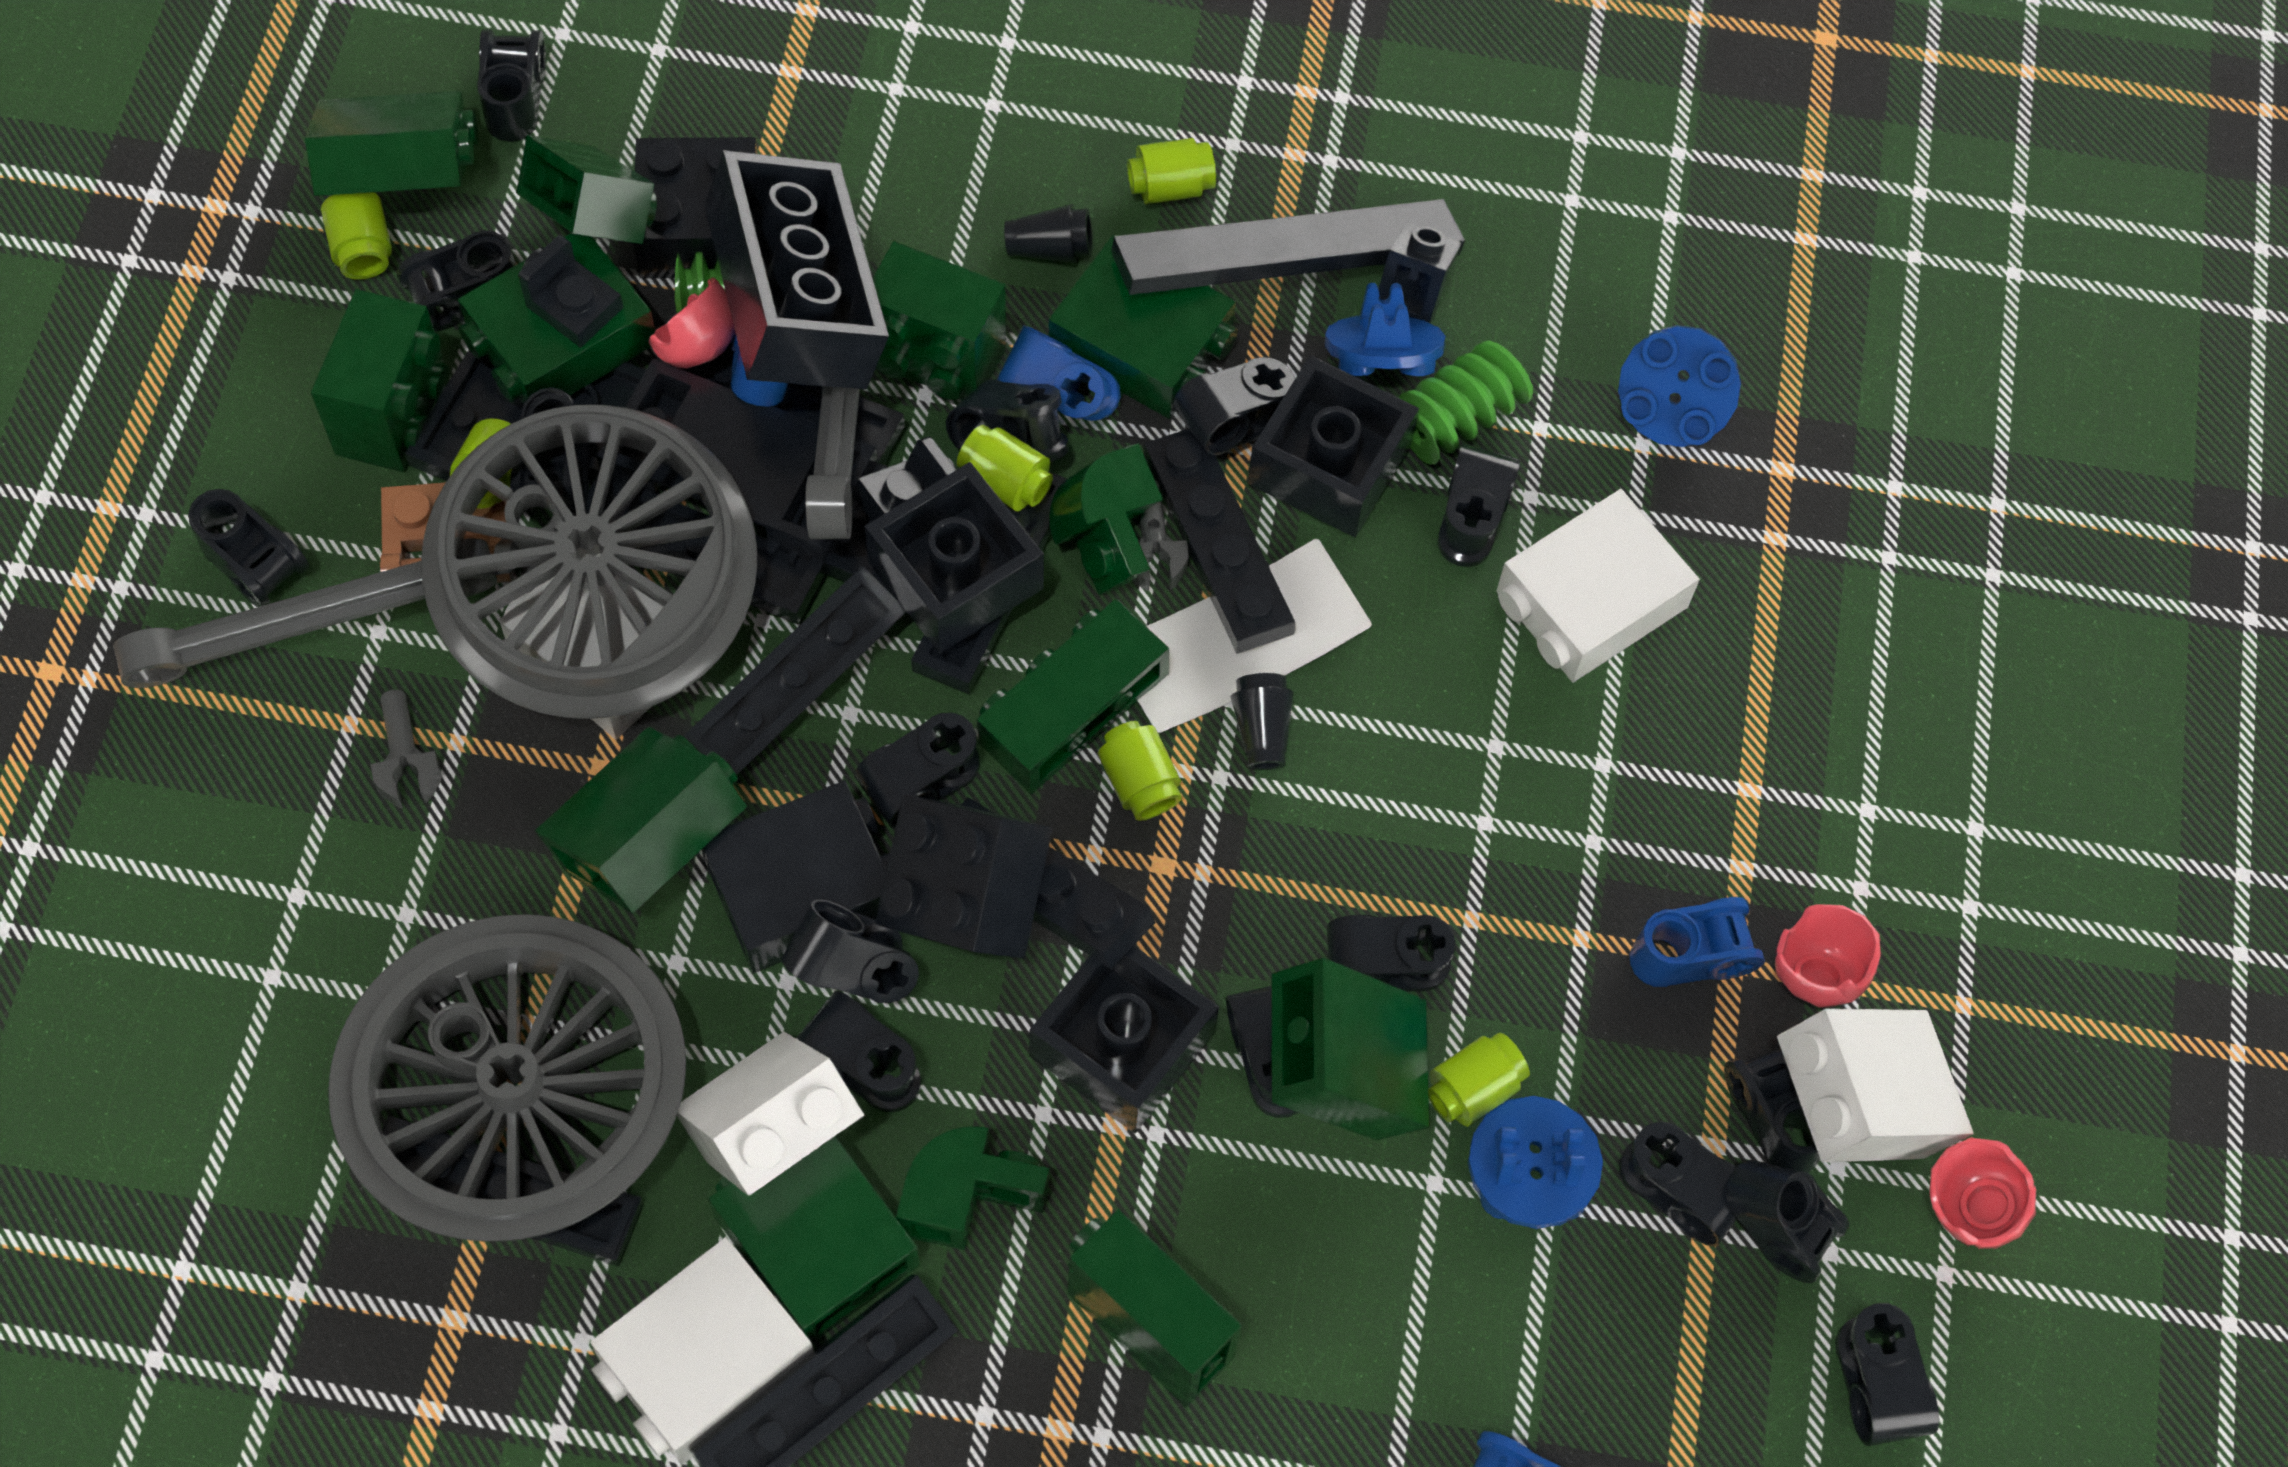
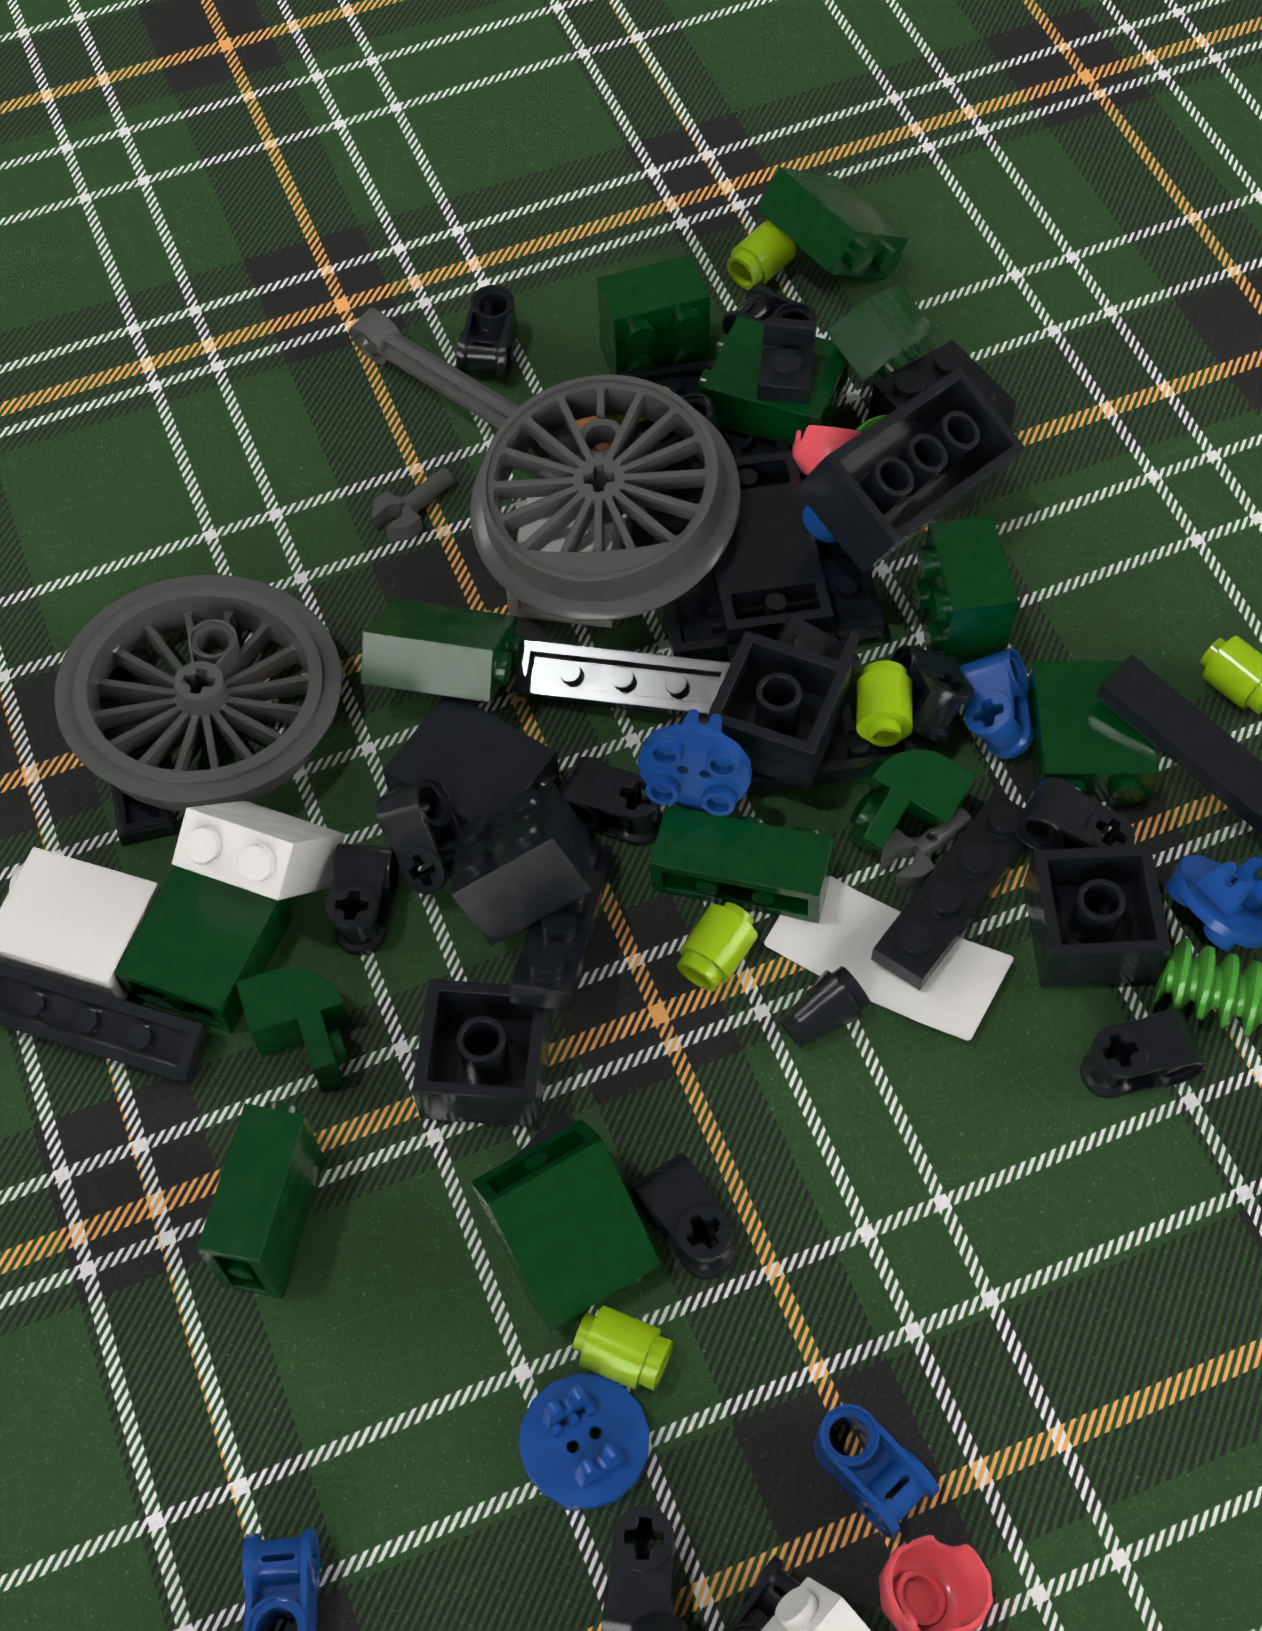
camera: 65 degrees right, 5 degrees down
(511, 82) = (947, 263): black piece -> none
(830, 486) = (748, 601): dark grey piece -> none
(976, 660) = (695, 766): none -> blue plate
(1051, 235) = (1116, 630): black cone -> none
(1596, 585) = (1141, 1192): white brick -> none

